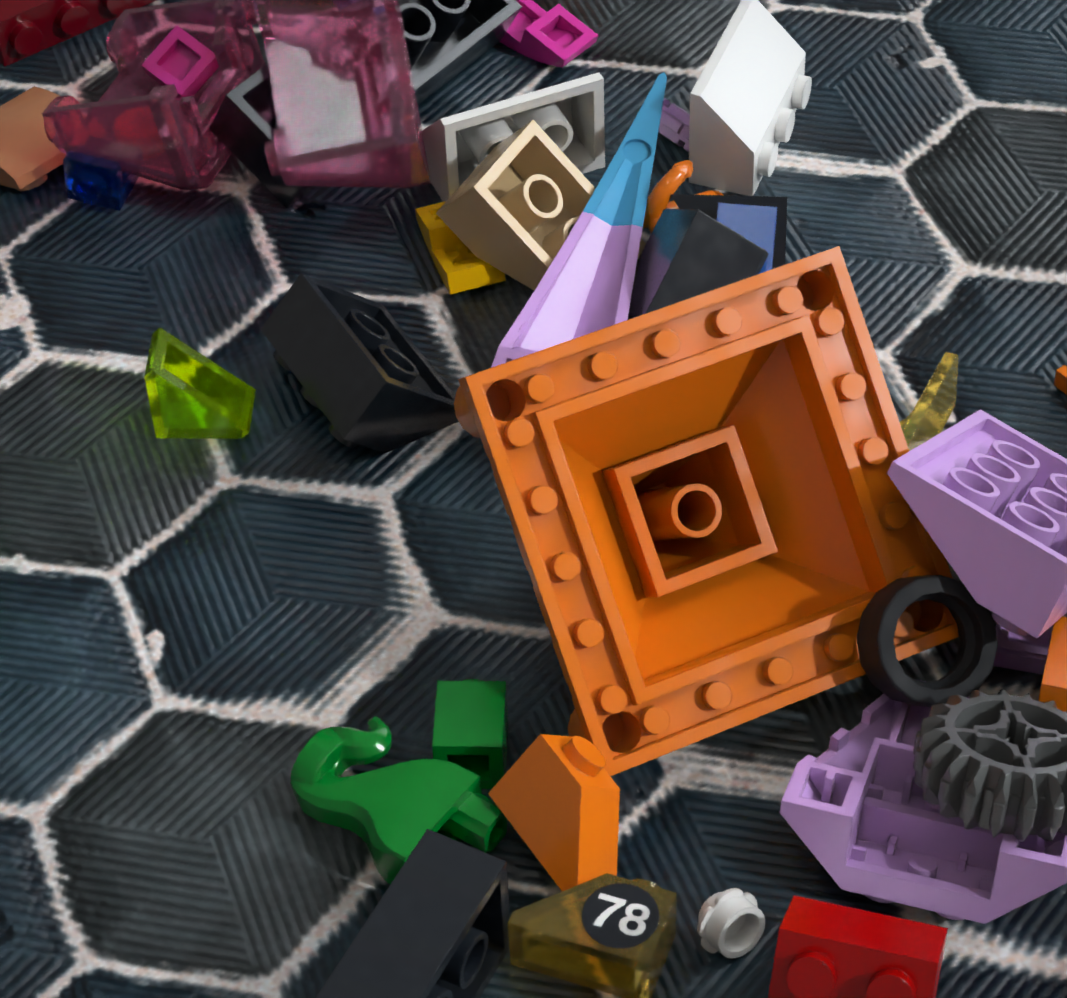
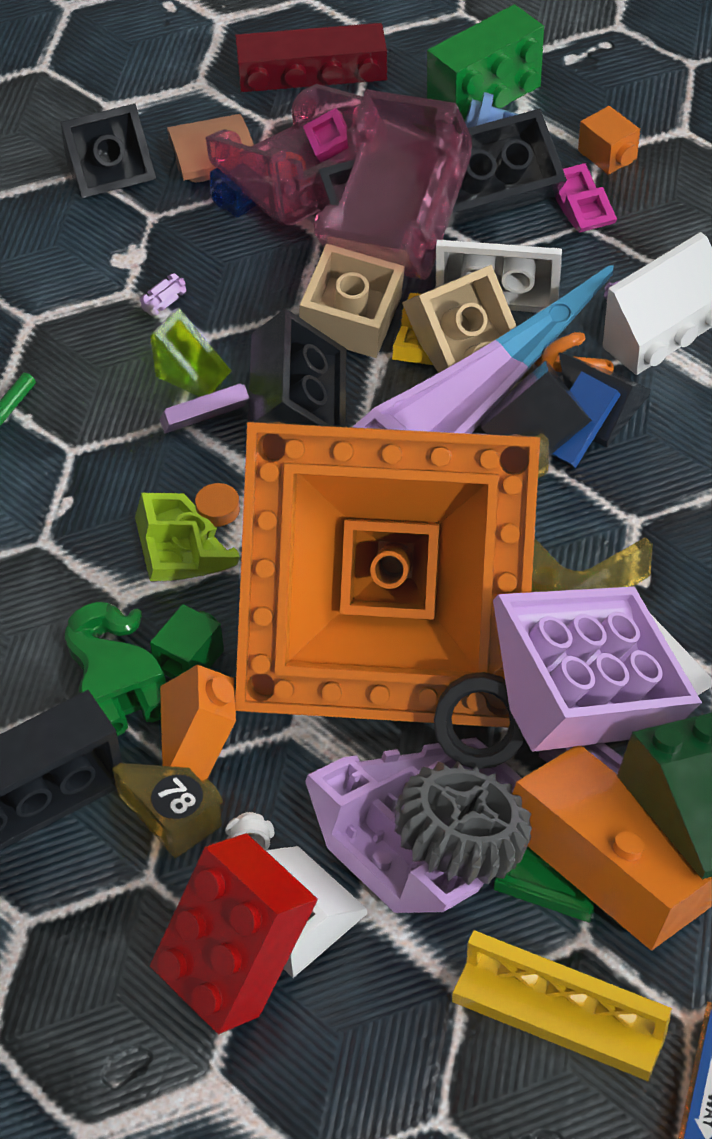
camera: 30 degrees right, 5 degrees up
(94, 335) = (163, 294): none -> lavender piece
(263, 443) = (204, 408): none -> lavender tile
(347, 615) = (178, 539): none -> lime slope
(363, 235) = (353, 298): none -> tan brick
(366, 552) = (218, 503): none -> orange tile

